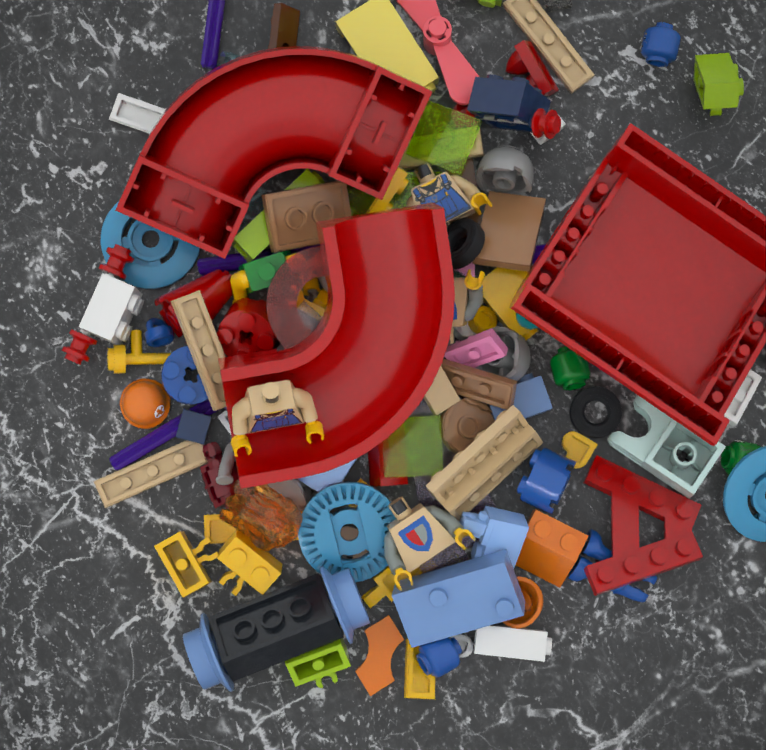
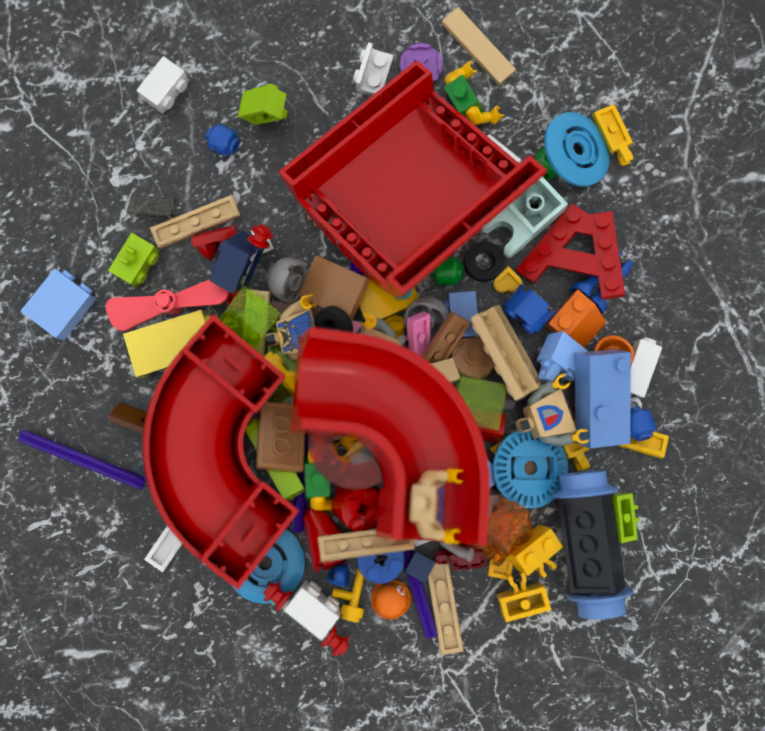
camera: 80 degrees left, 0 degrees up
(376, 669) = (634, 474): orange tile -> none

